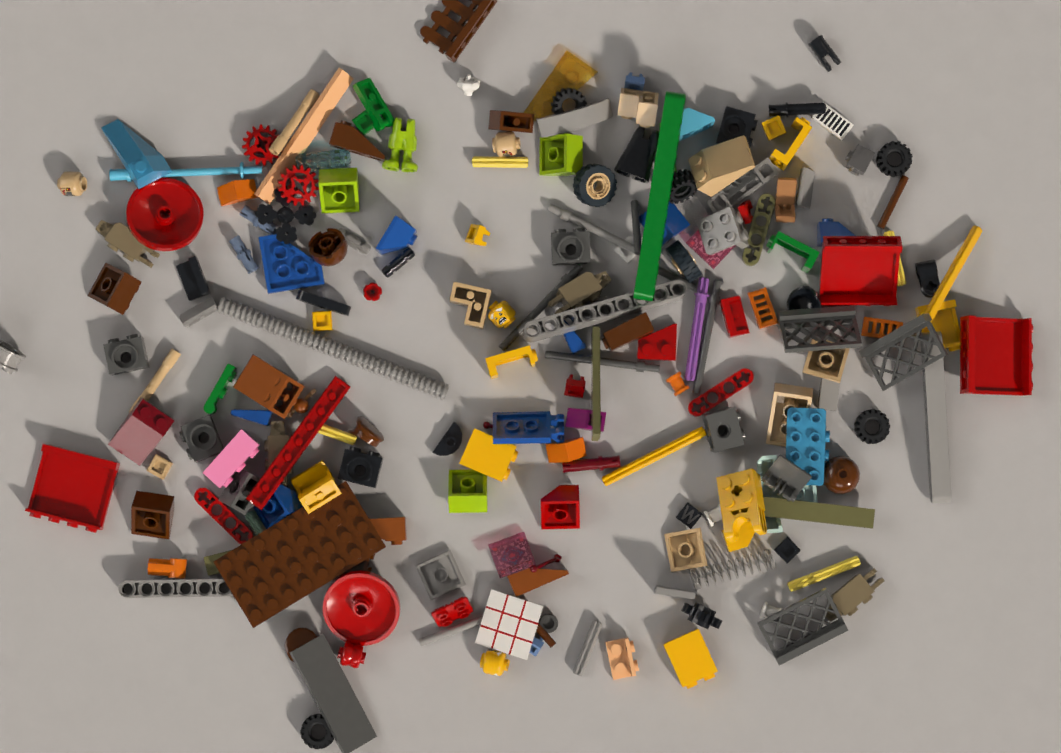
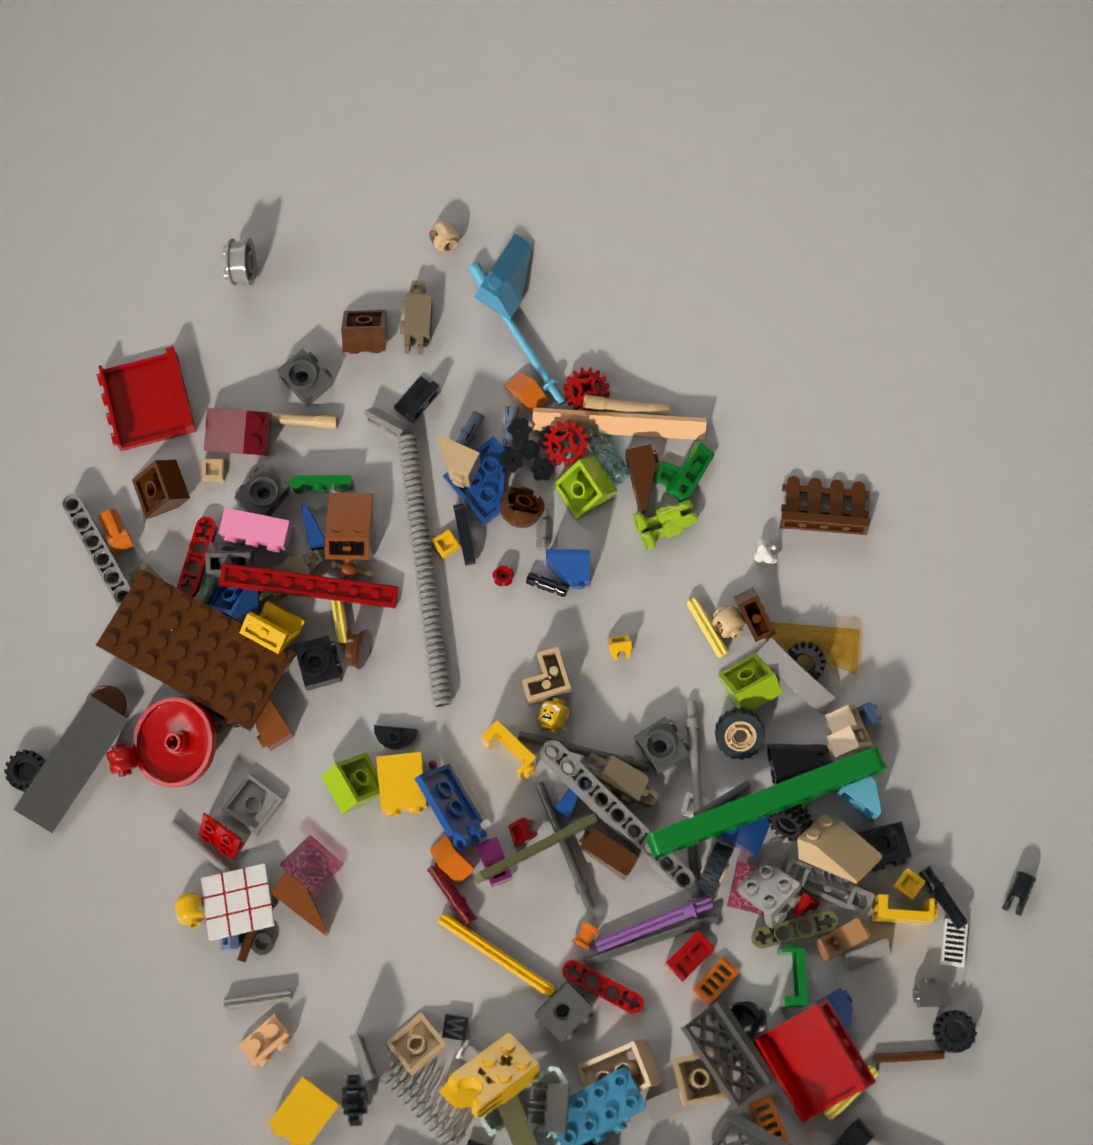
camera: 60 degrees right, 10 degrees down
(165, 214) = (463, 336): red dish -> none
(267, 275) = (460, 461): none -> tan slope
(557, 558) = (335, 914): dark red hinge -> none
(561, 508) = (388, 888): red slope -> none
(659, 345) = (615, 894): red wing -> none

